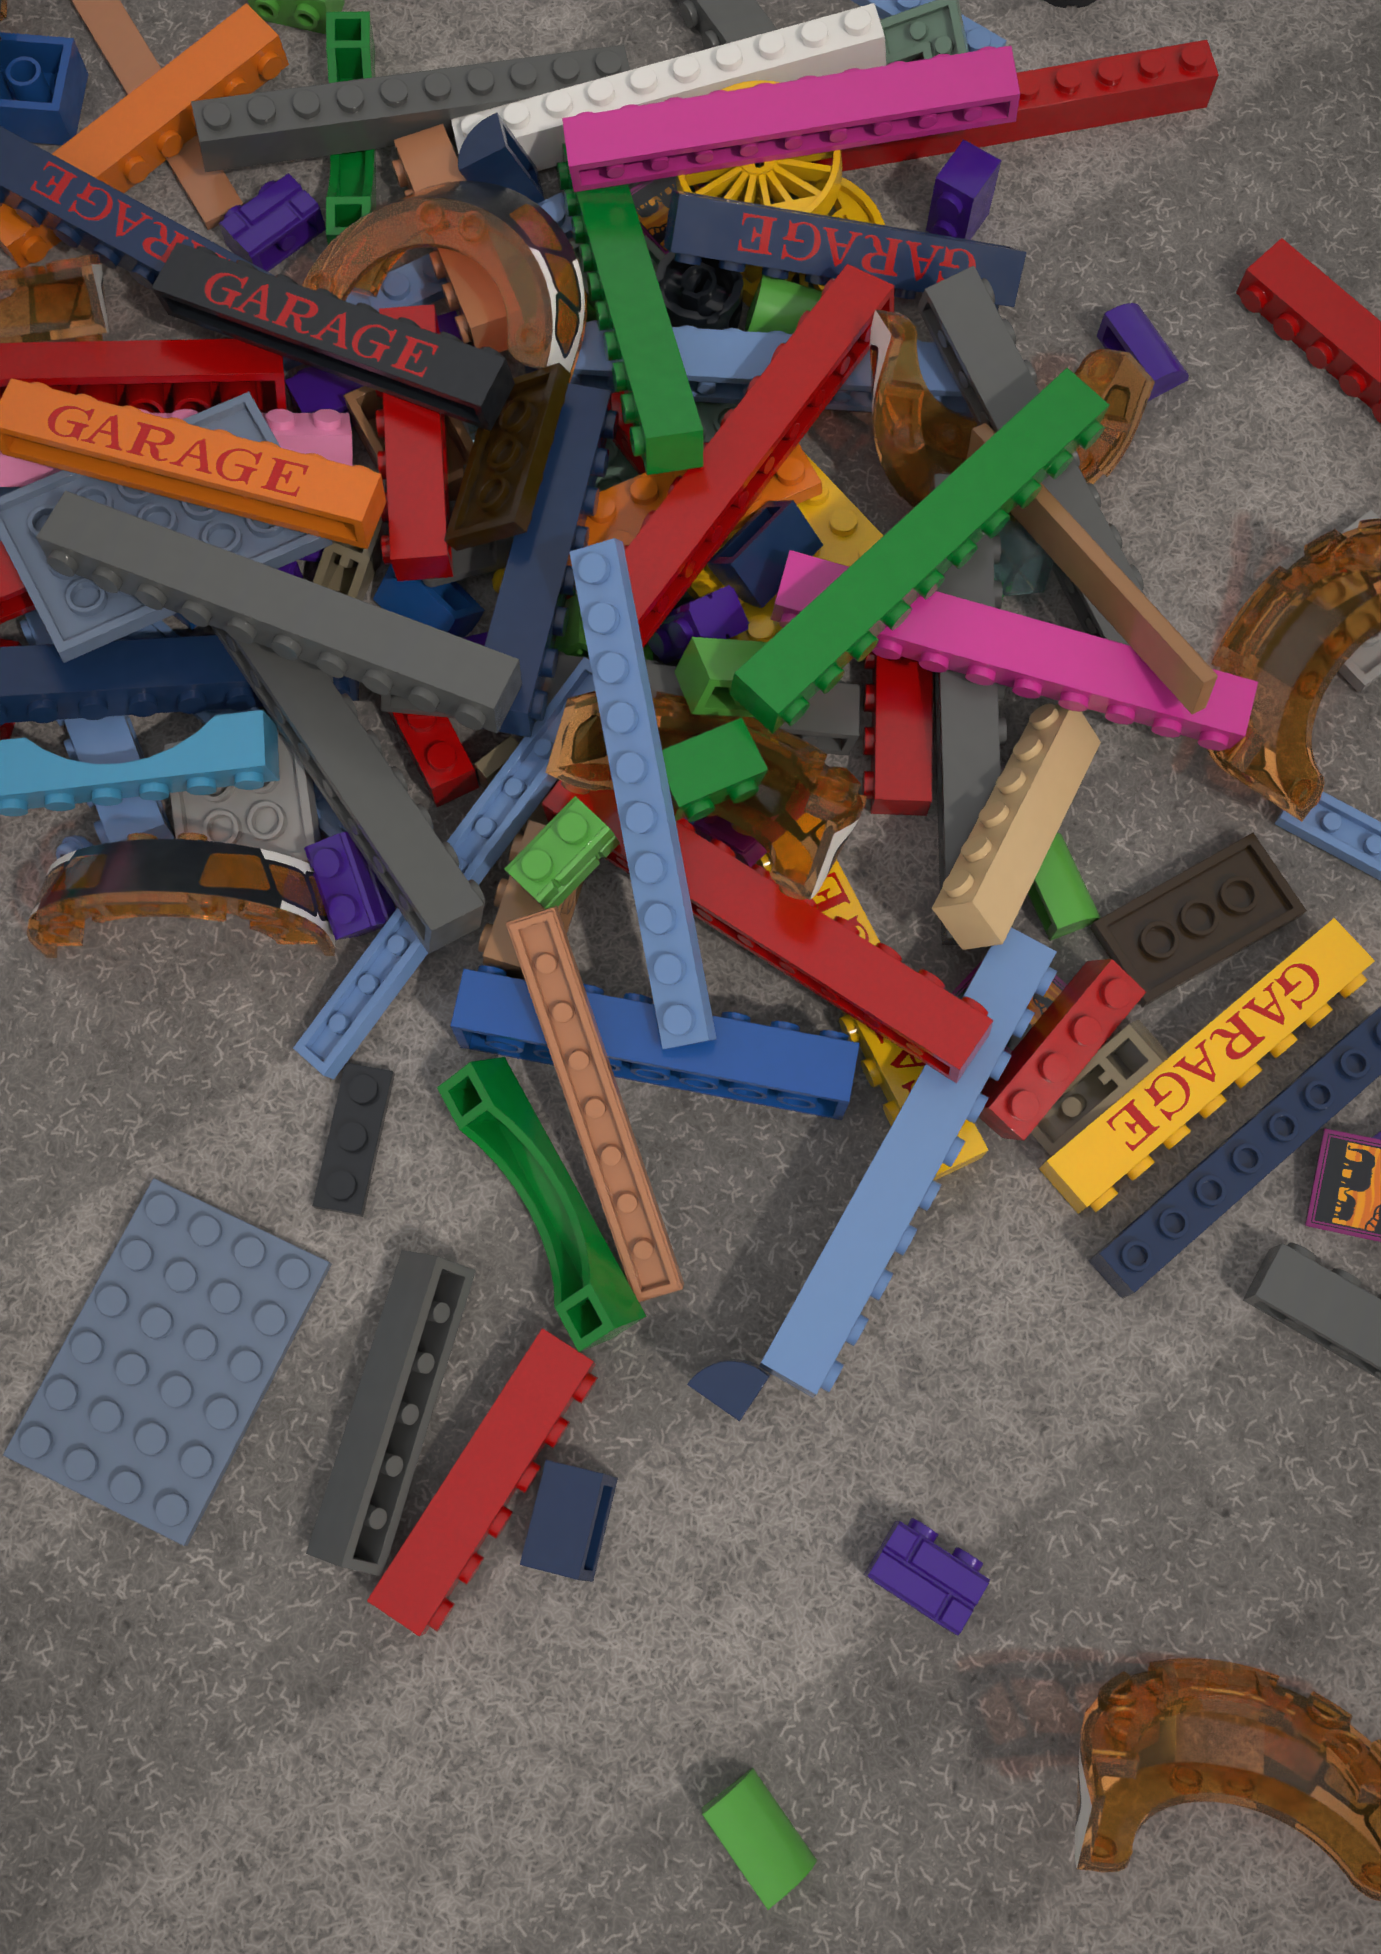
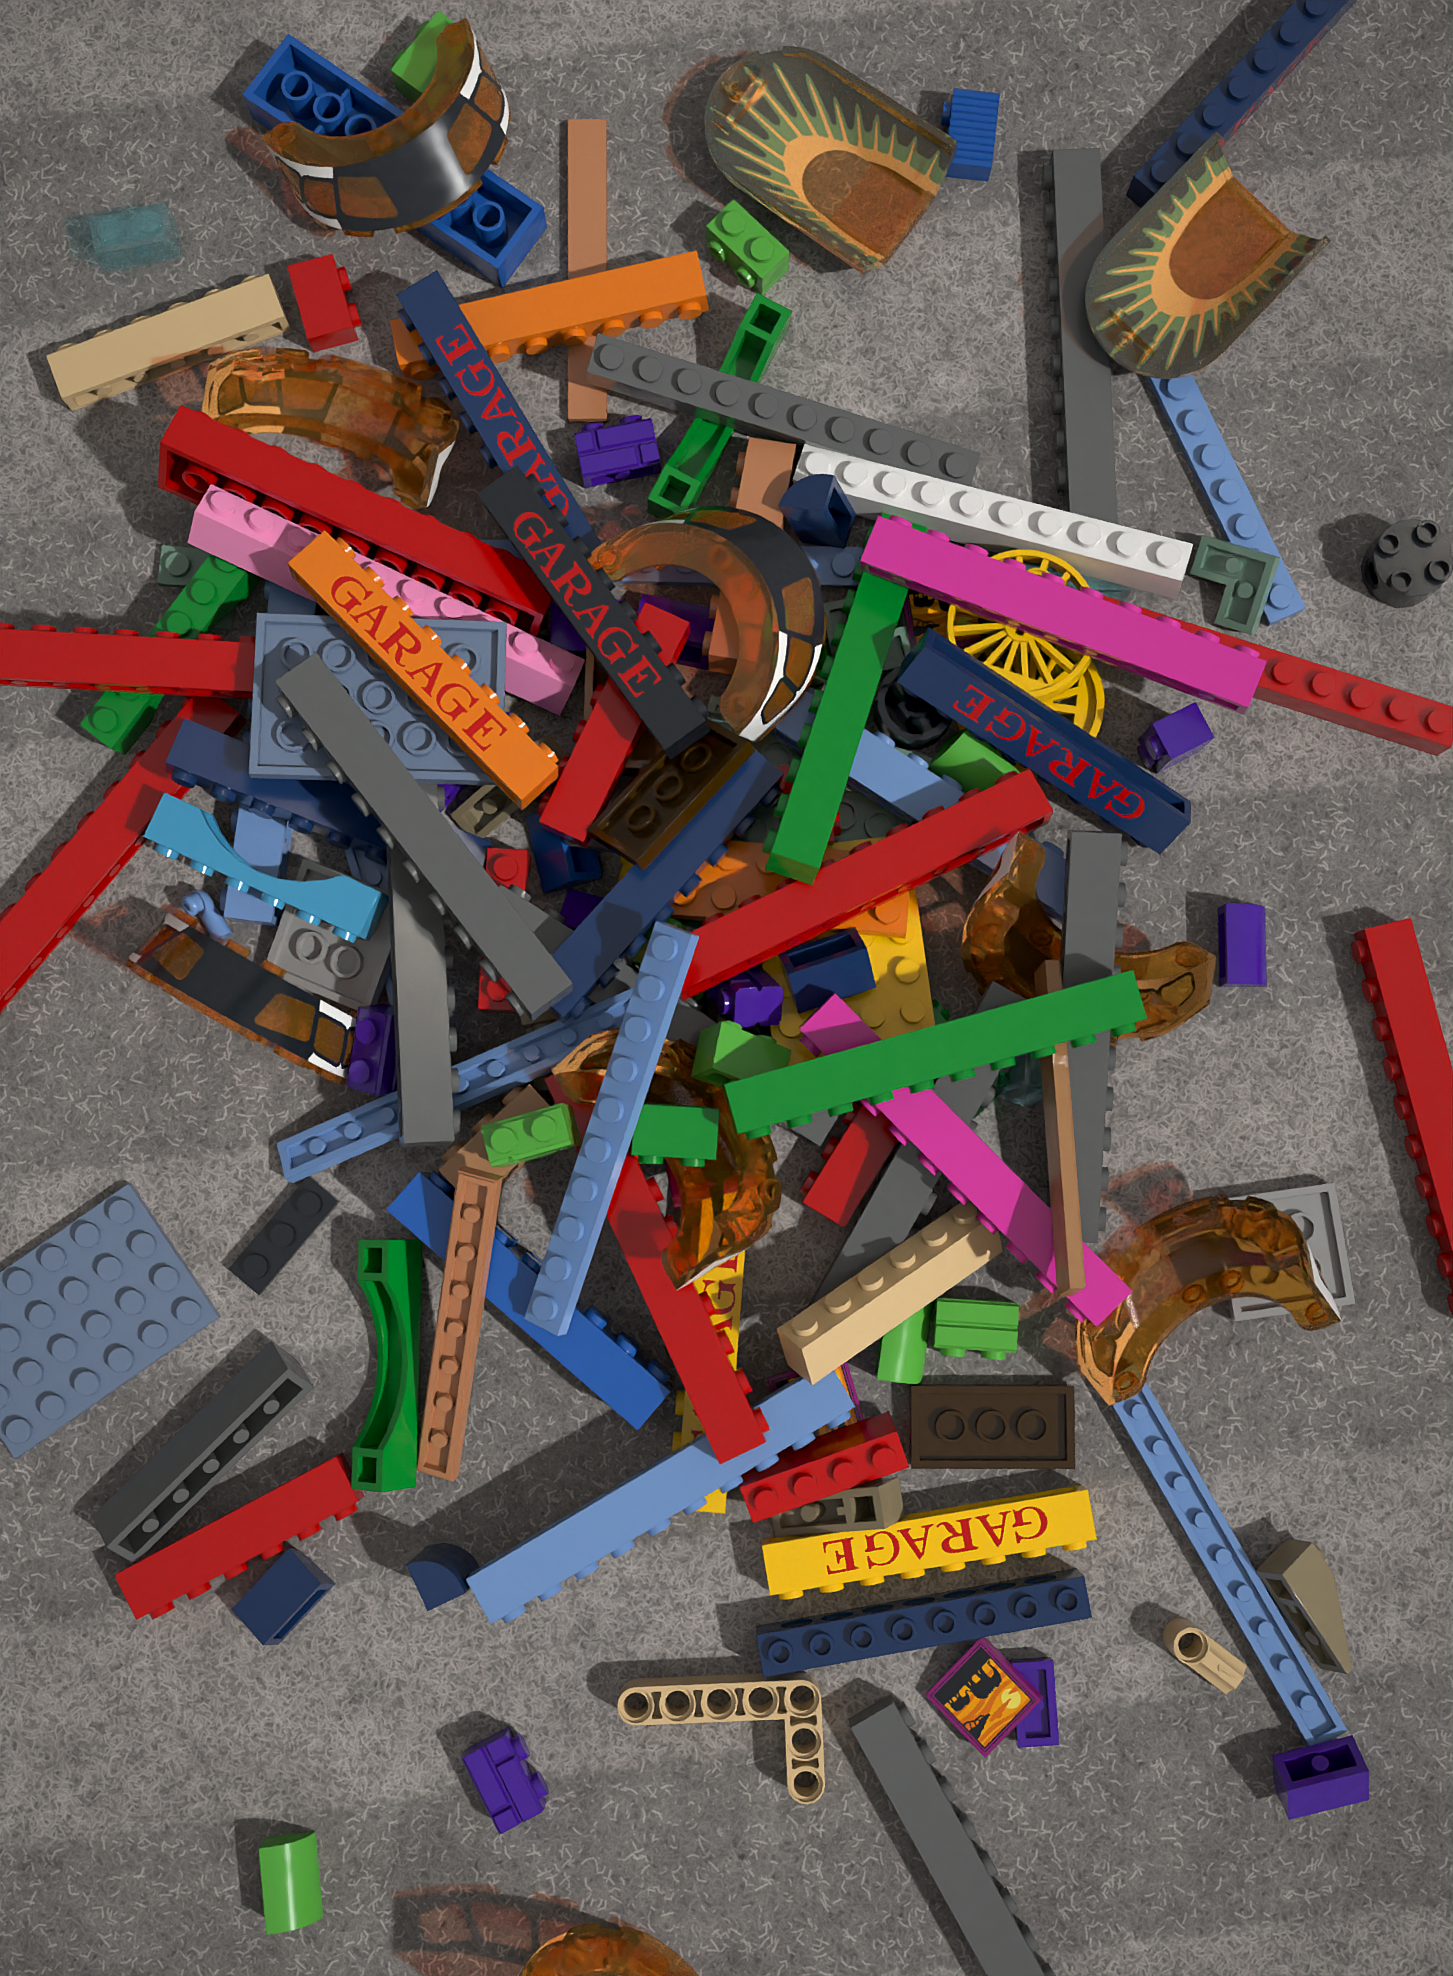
camera: 30 degrees right, 10 degrees up
(1118, 830) = (975, 1325): none -> bright green brick
(1125, 1346) = (740, 1708): none -> tan beam

